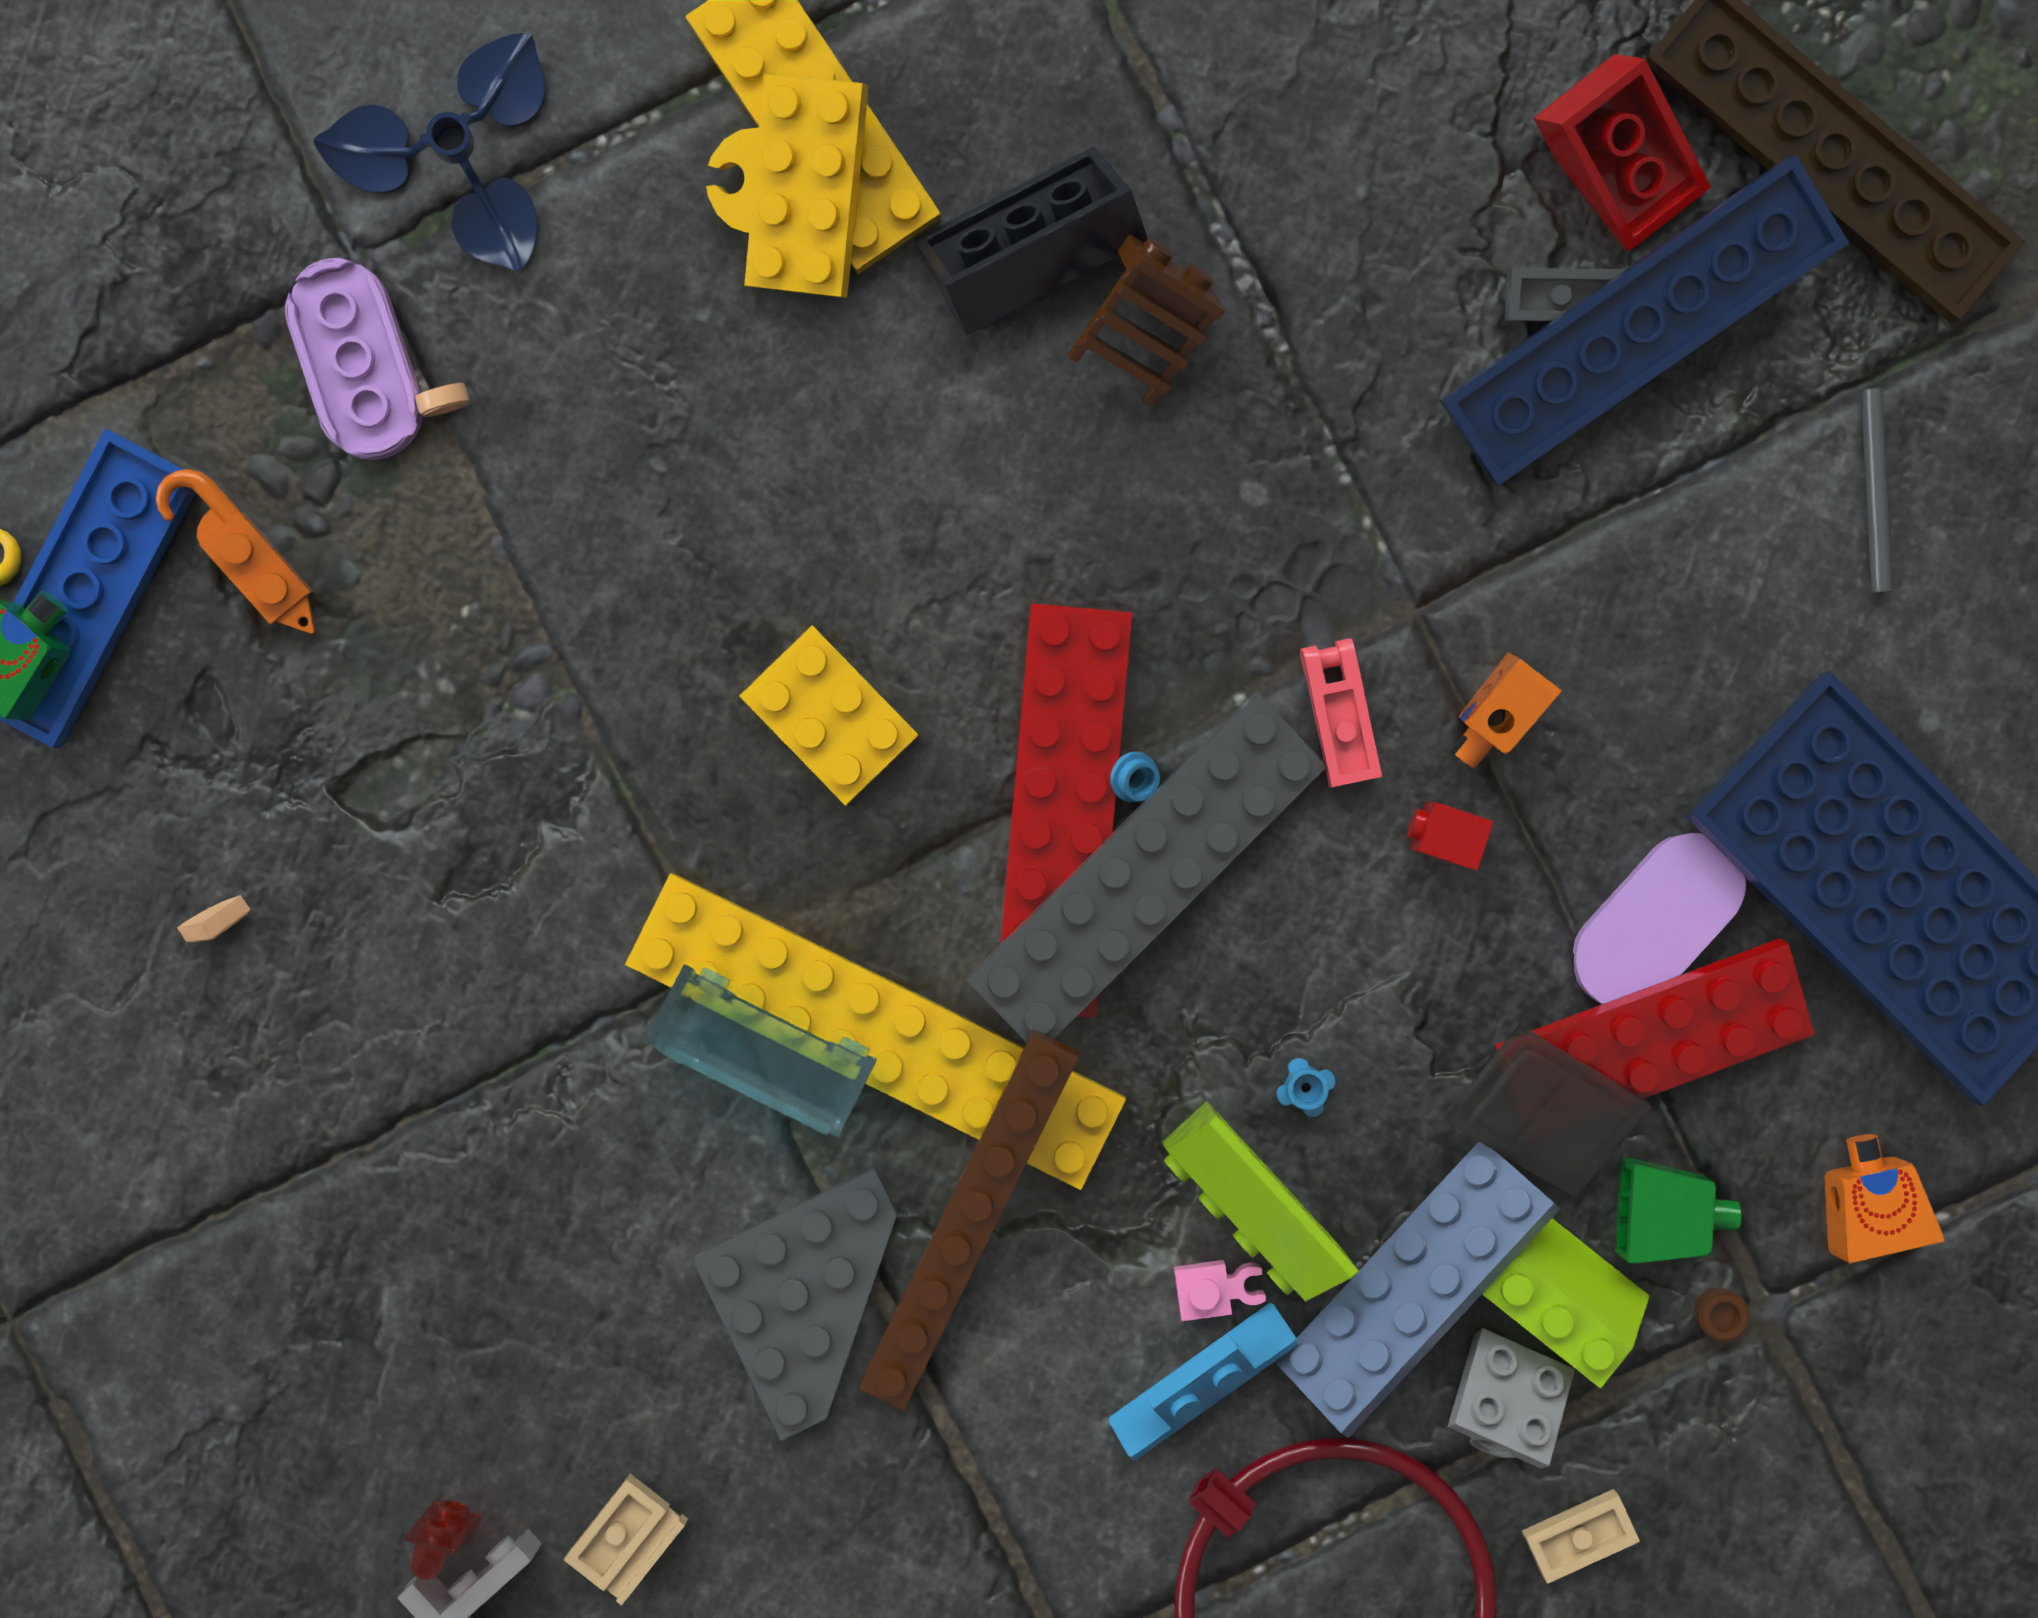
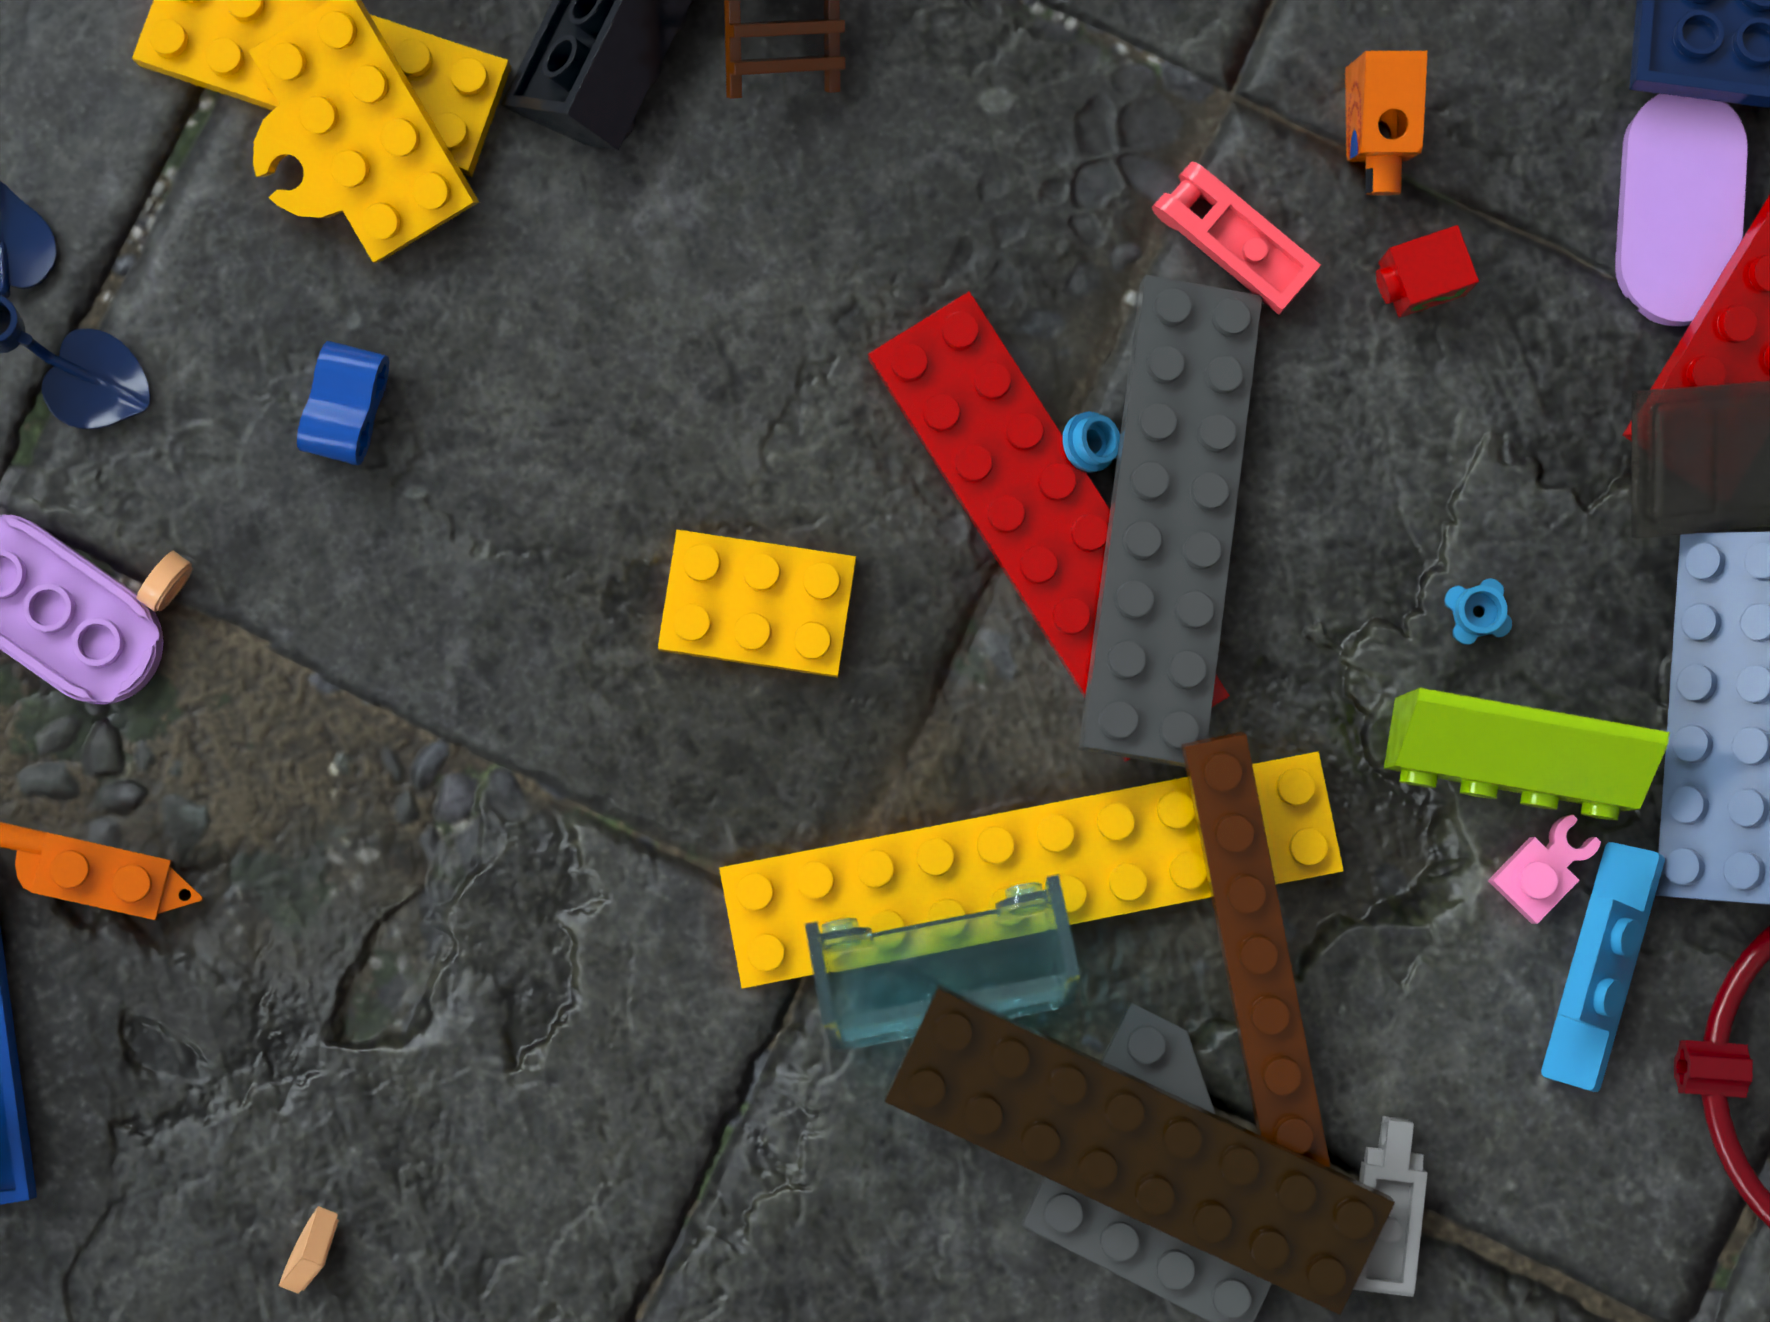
camera: 35 degrees left, 5 degrees down
(652, 367) = (343, 403): none -> blue axle
(801, 1269) = (1139, 1149): none -> dark brown plate
(937, 1432) = (1400, 1175): none -> light grey hinge

